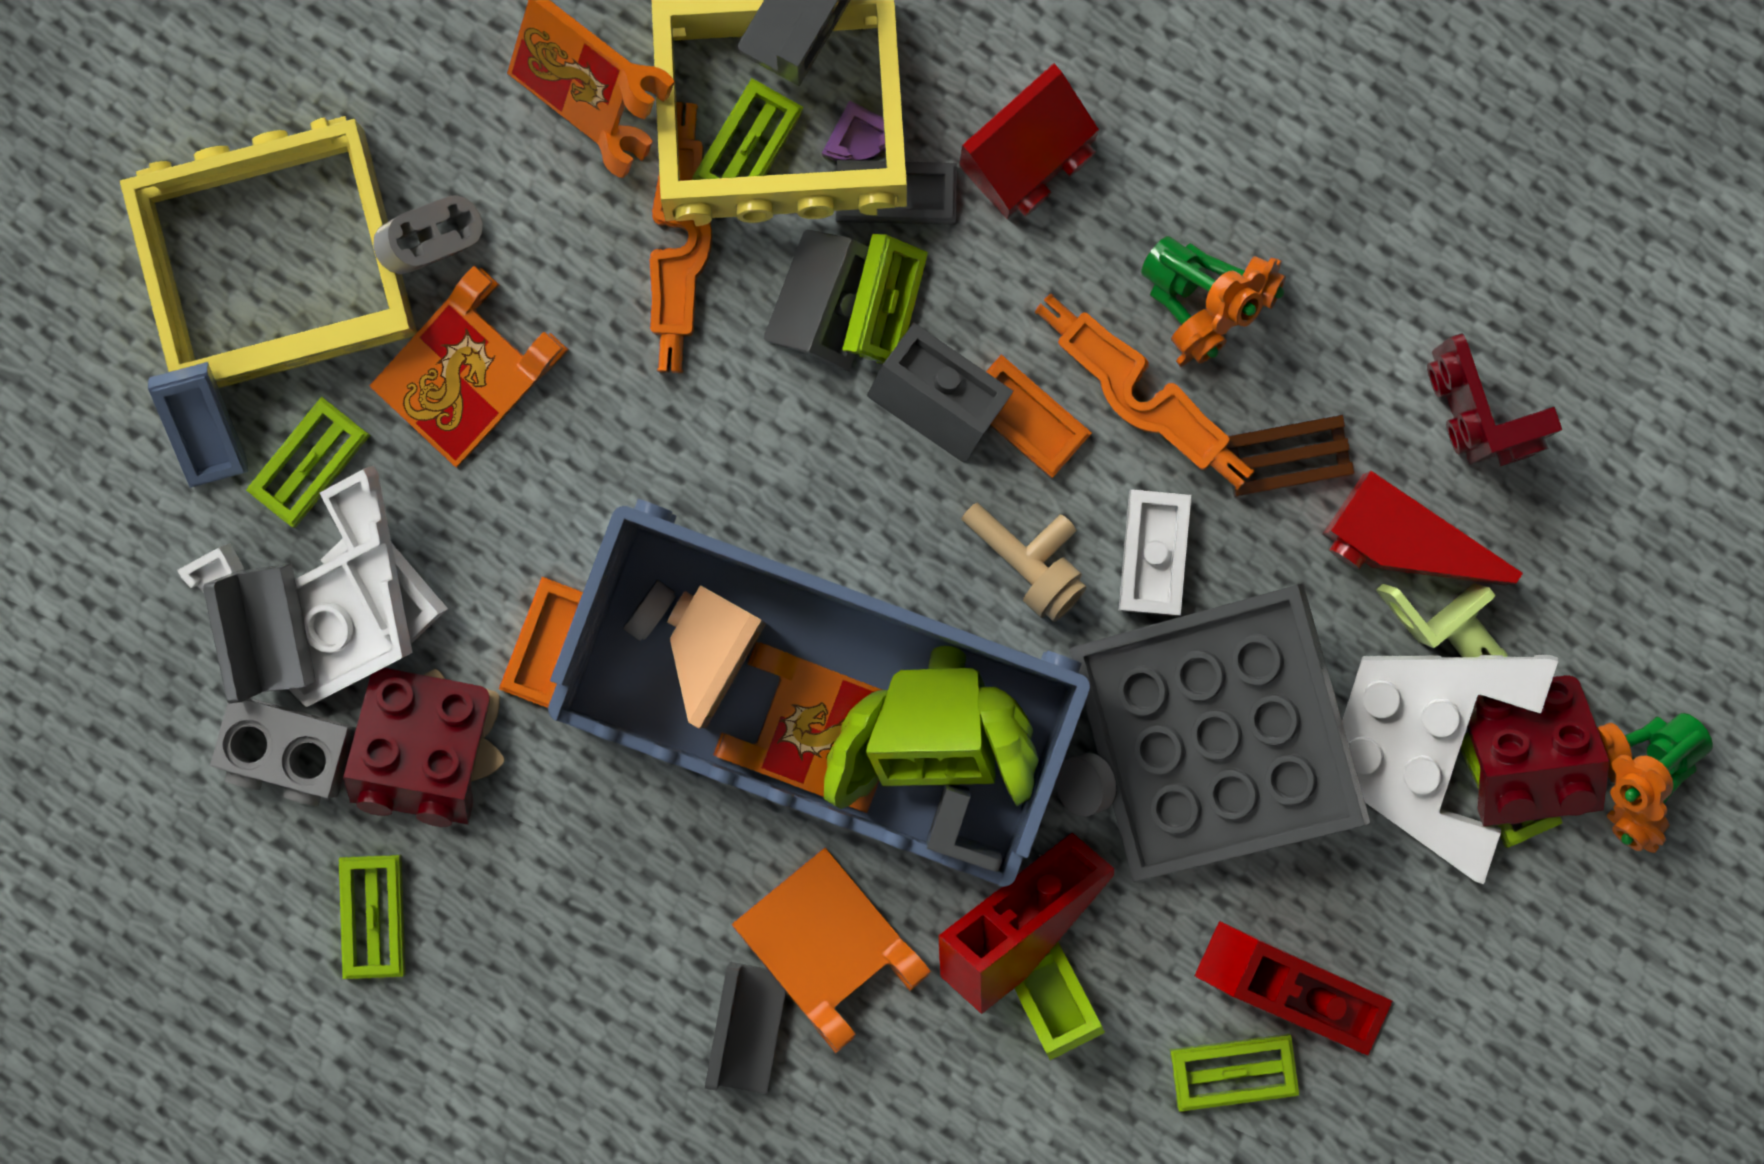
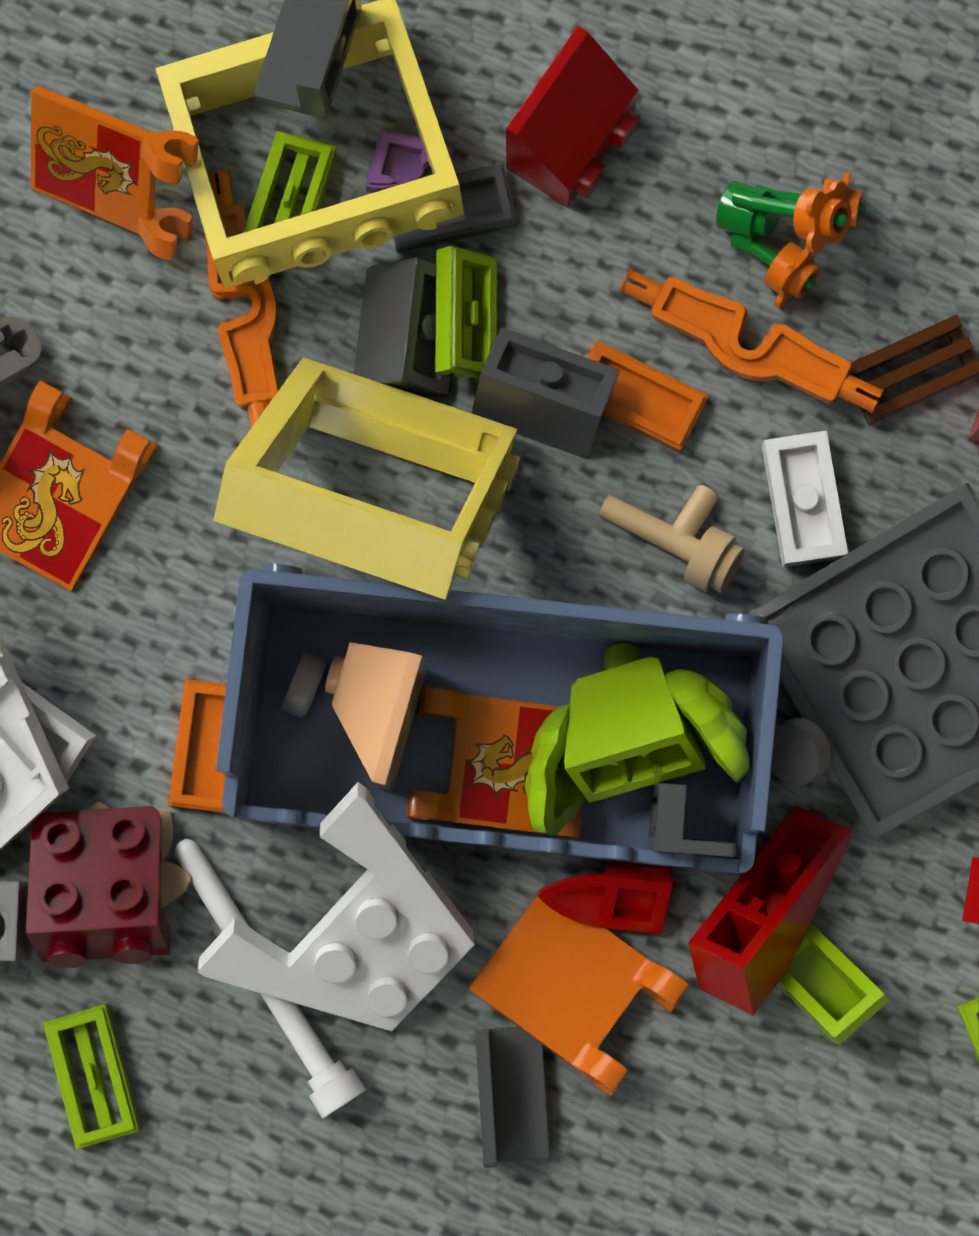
camera: 10 degrees left, 5 degrees down
(586, 976) = (330, 1081): none -> white piece
(653, 868) = (374, 947): none -> white wing
(724, 496) = (349, 530): none -> light yellow window
(885, 877) = (621, 898): none -> red plate

